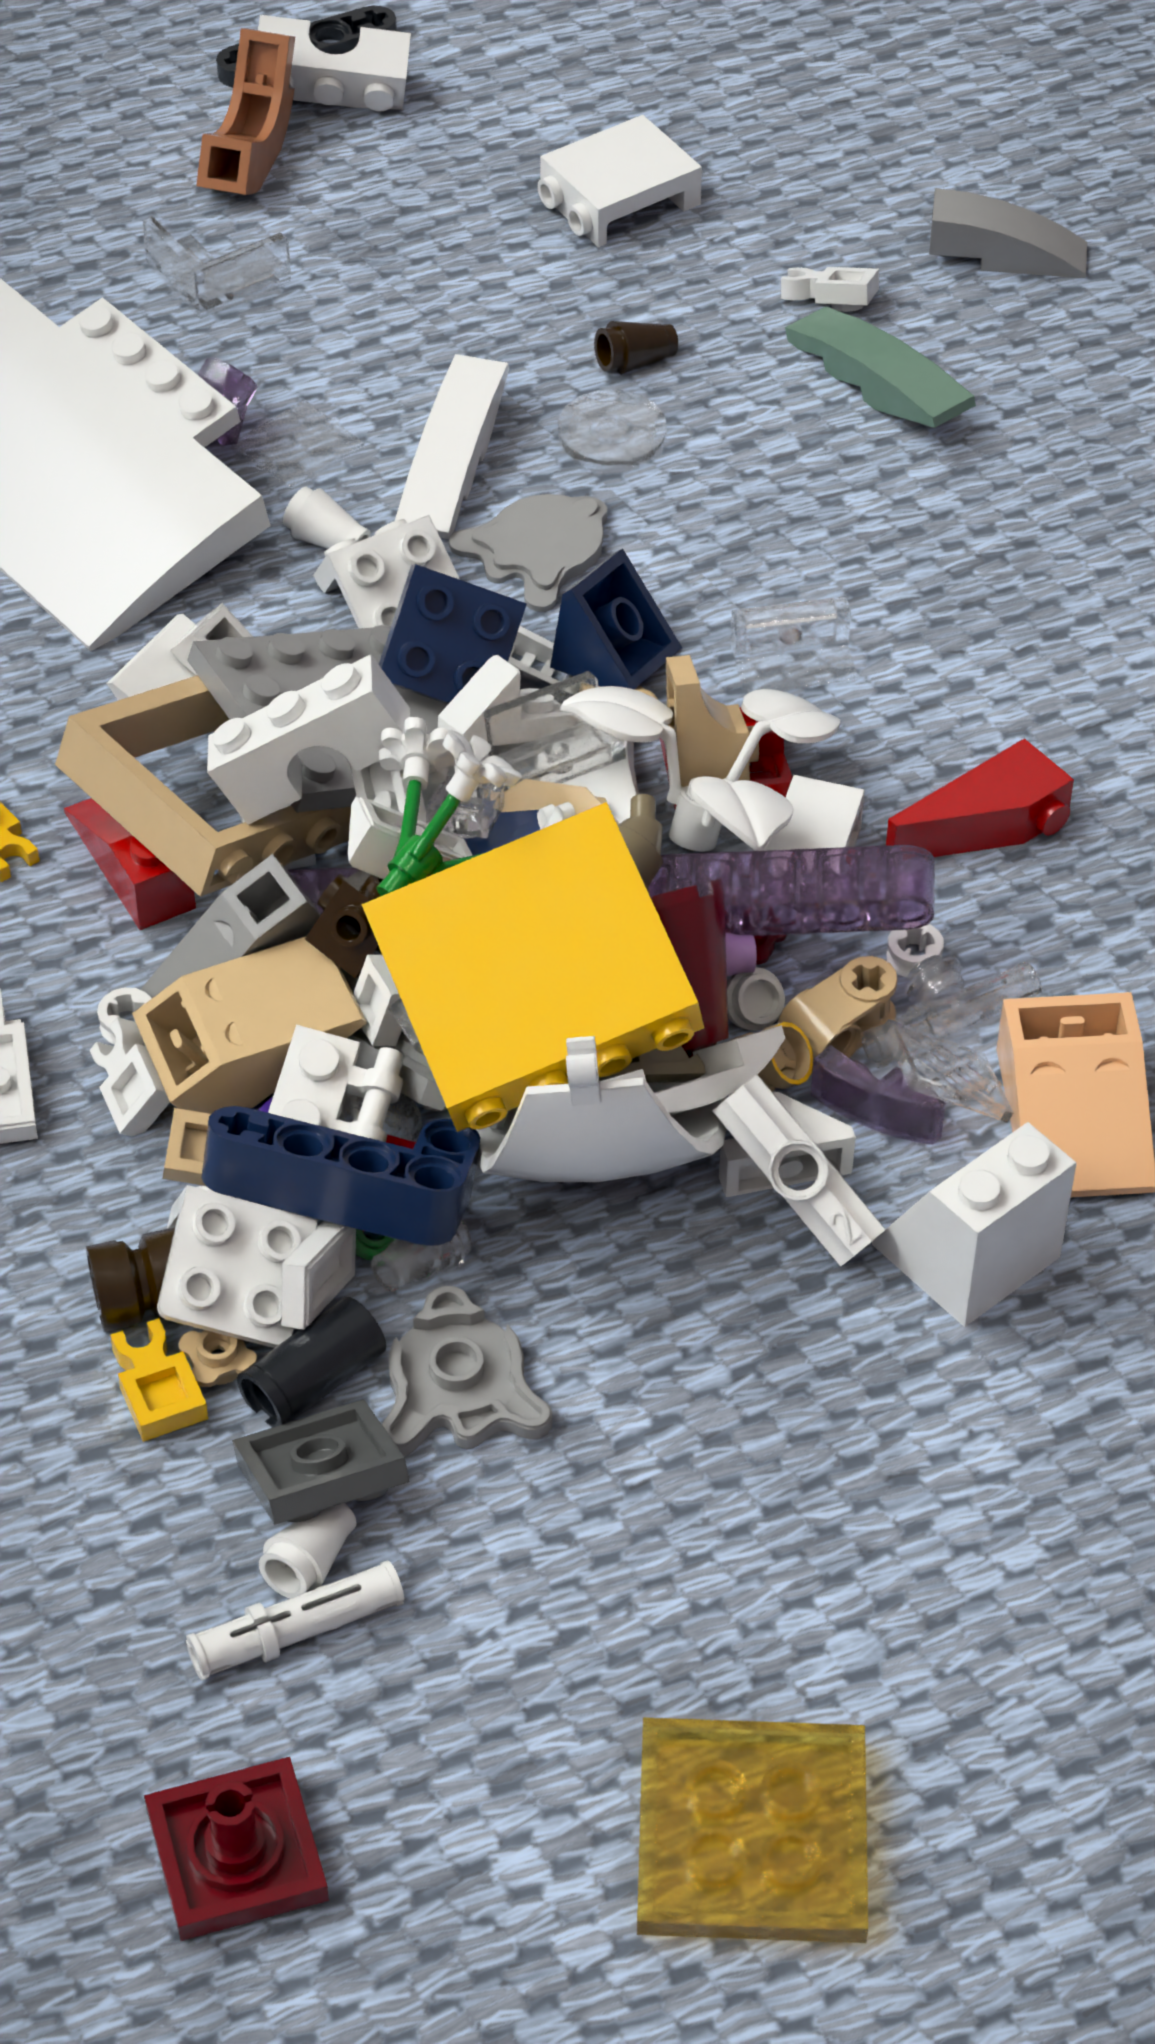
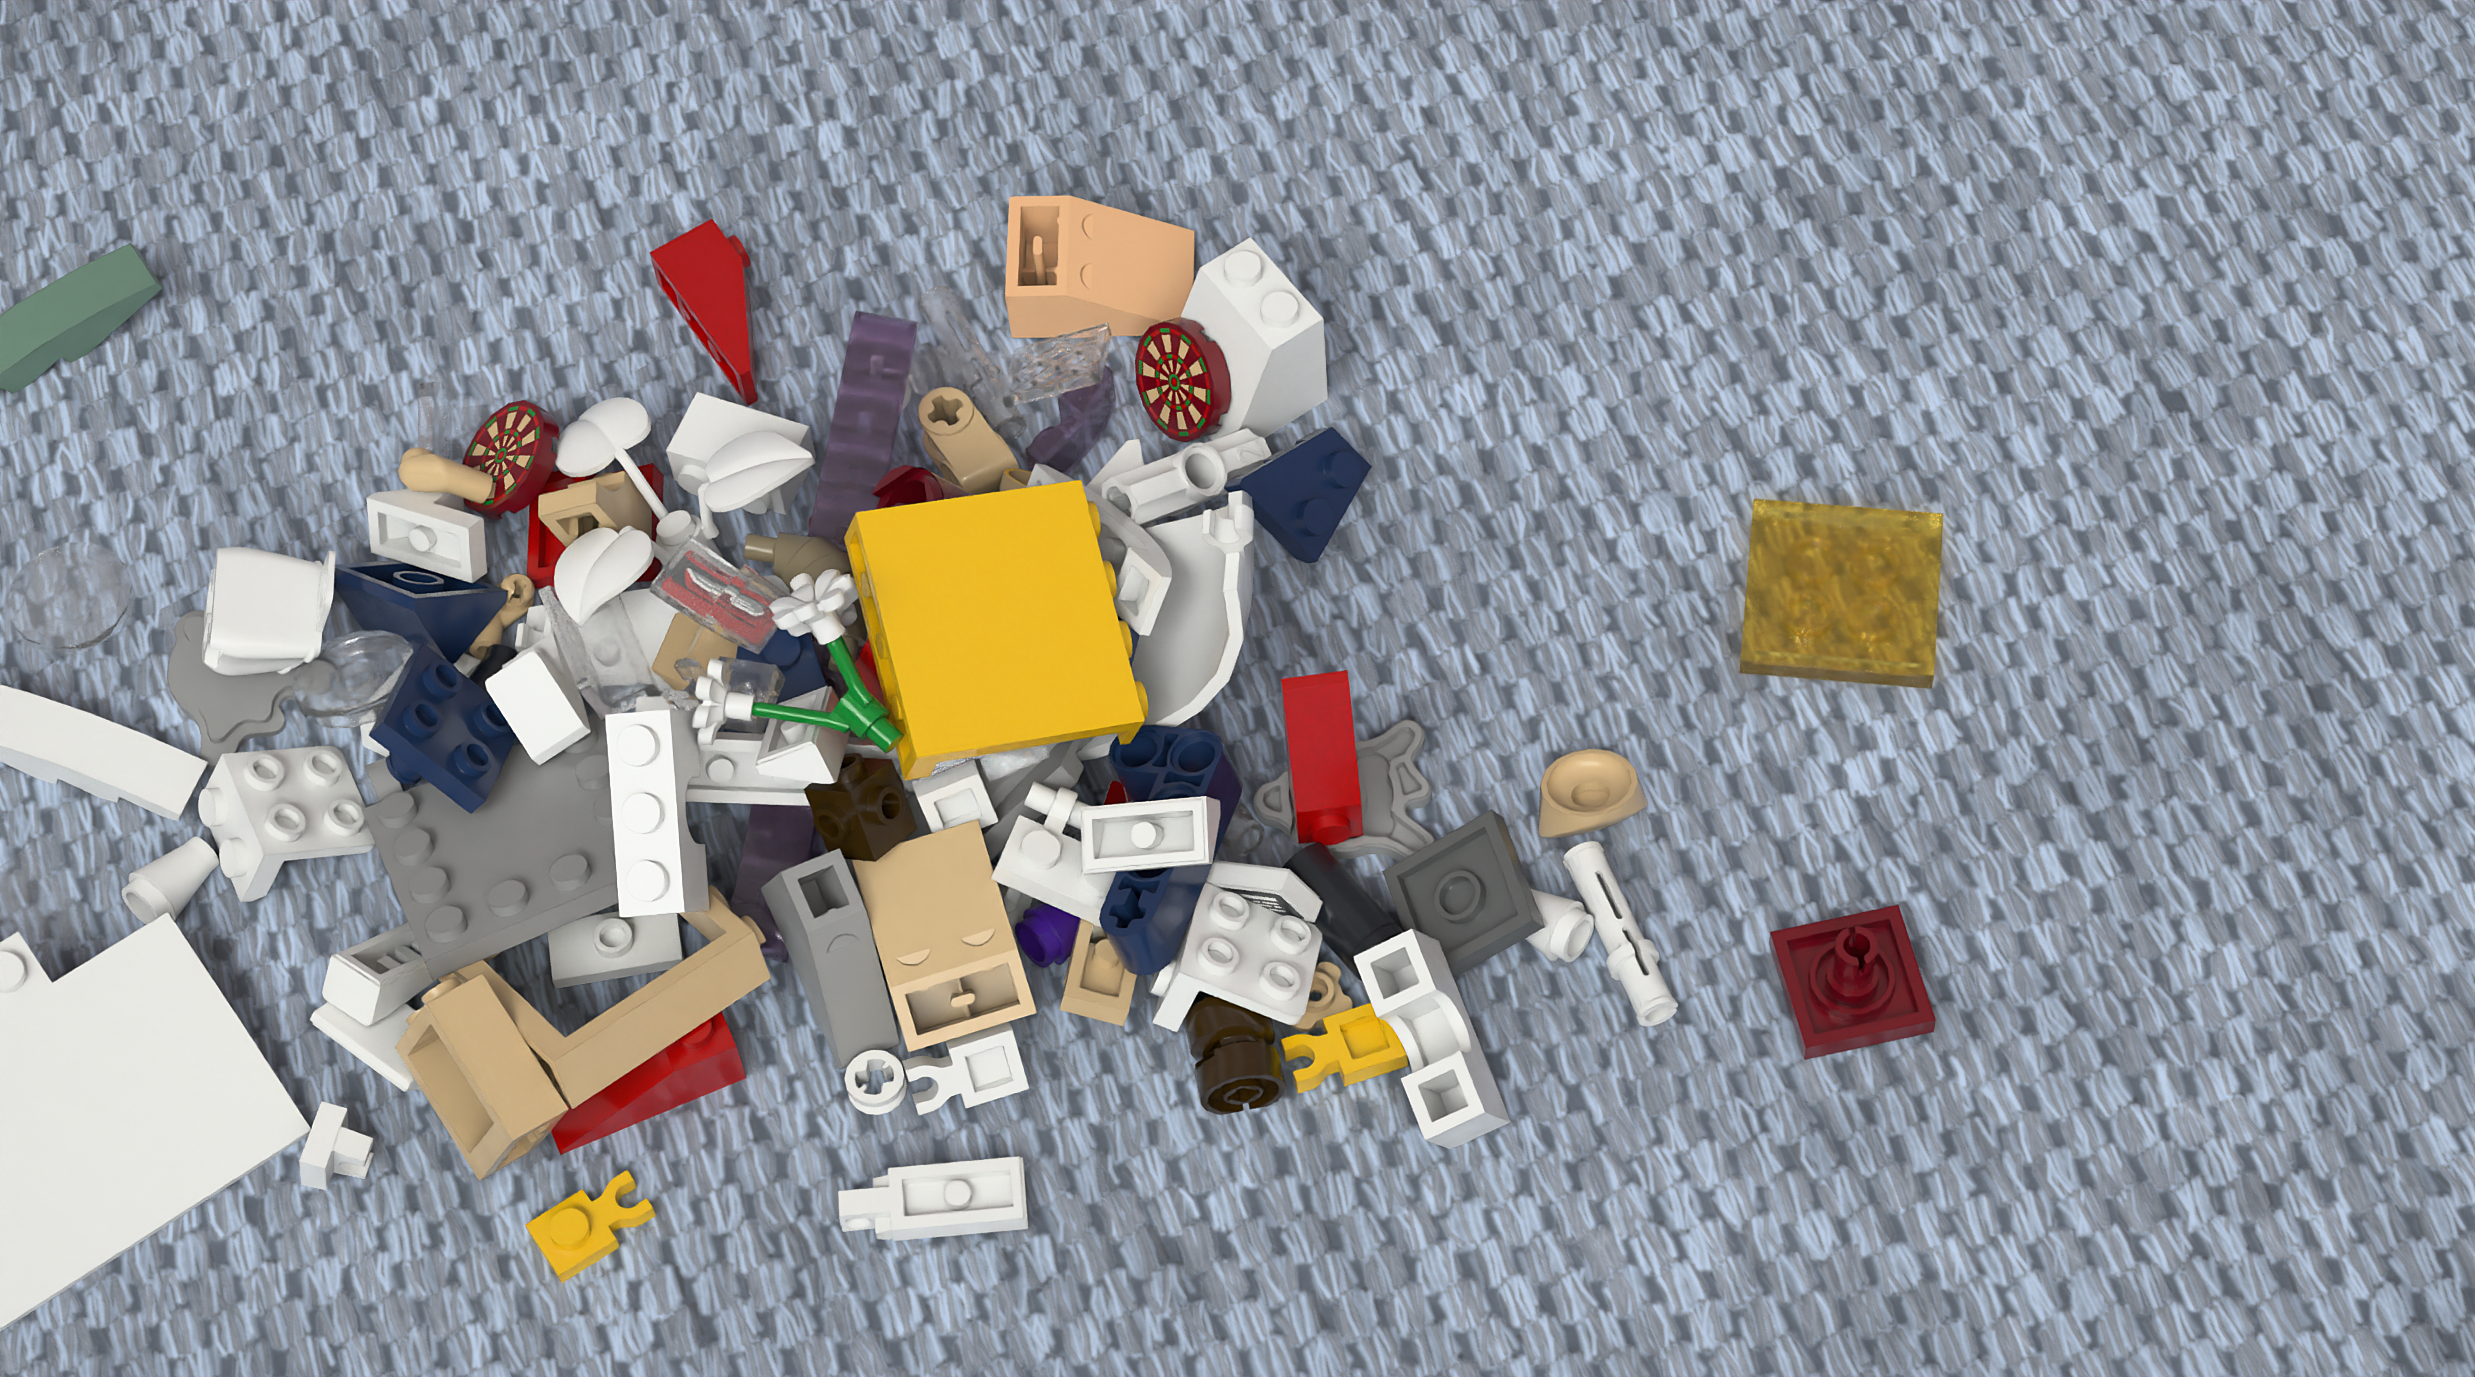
camera: 80 degrees left, 10 degrees up
(61, 650) = (333, 1149): none -> white tile
(100, 1466) = (1420, 1001): none -> white arch
(106, 672) = (479, 1074): none -> tan window
(327, 1132) = (1149, 834): none -> white slope
(442, 1296) = (1322, 757): none -> red slope
(464, 1580) = (1588, 793): none -> tan piece
(532, 585) = (350, 678): none -> clear tile
(572, 510) = (265, 611): none -> white piece
(582, 773) = (719, 595): none -> clear slope
(695, 627) = (428, 532): none -> white slope
(734, 604) = (433, 473): none -> tan arm
(766, 669) = (518, 455): none -> dark red tile
(819, 1292) = (1304, 491): none -> dark blue wing
(937, 1170) = (1182, 379): none -> dark red tile

